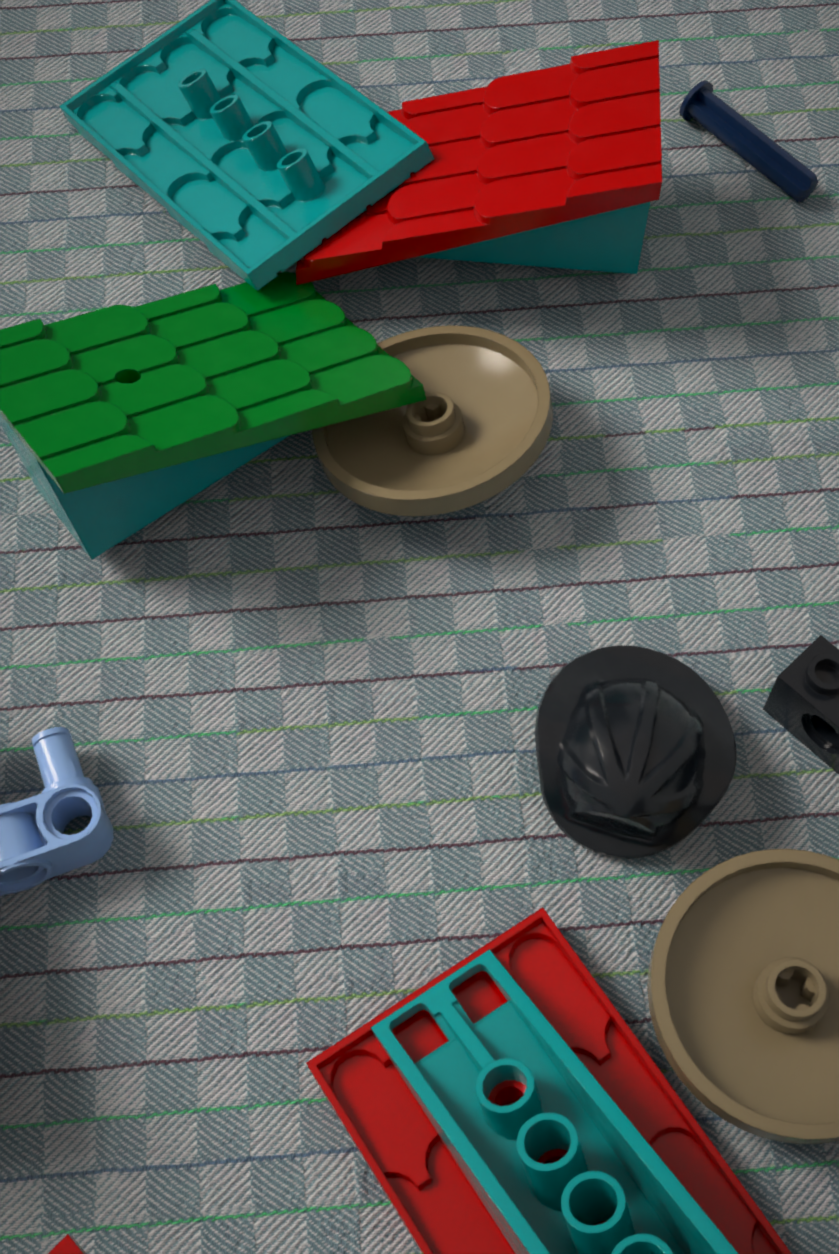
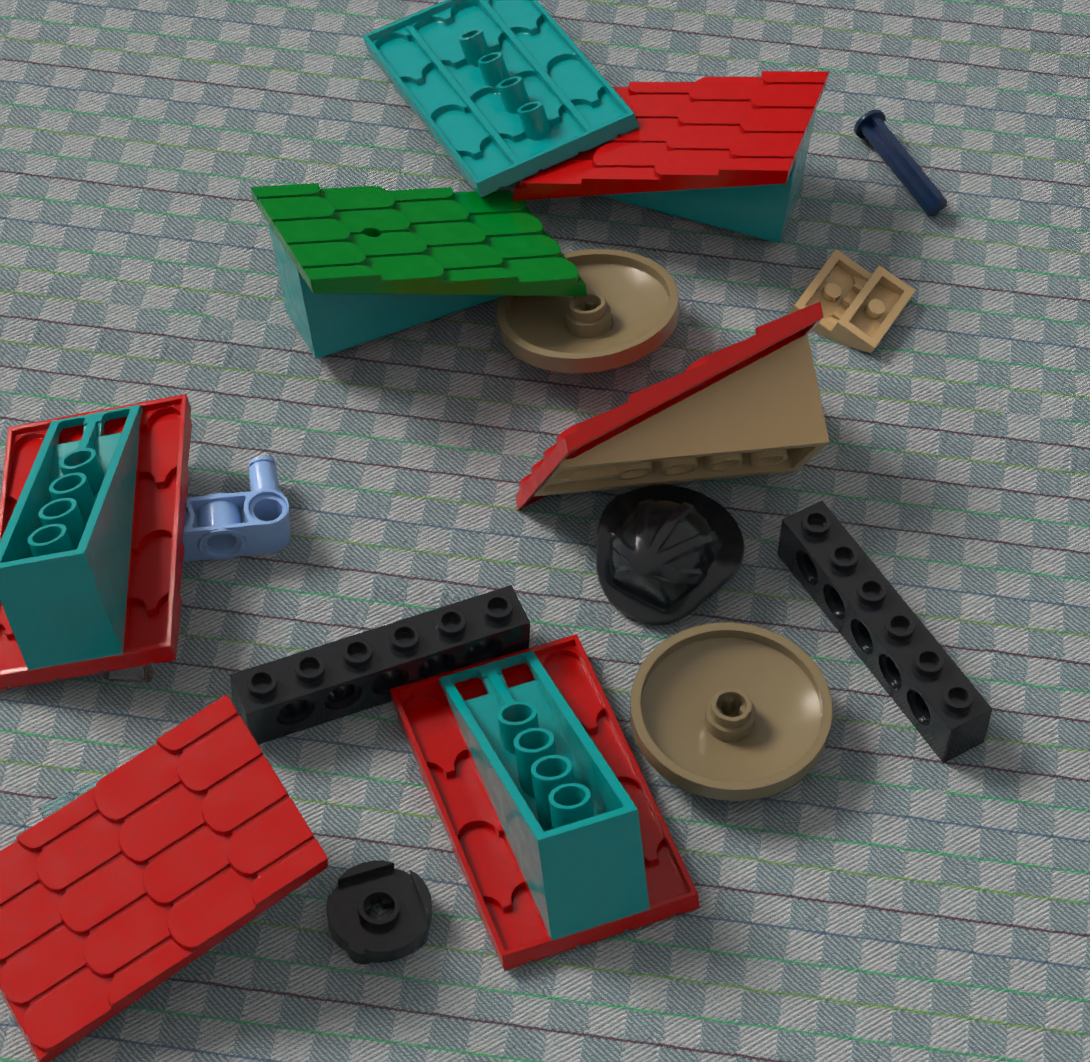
camera: 10 degrees right, 10 degrees down
(275, 1033) = (363, 668): none -> black brick
(664, 535) = (724, 417): none -> tan piece
(748, 335) = (854, 302): none -> tan slope

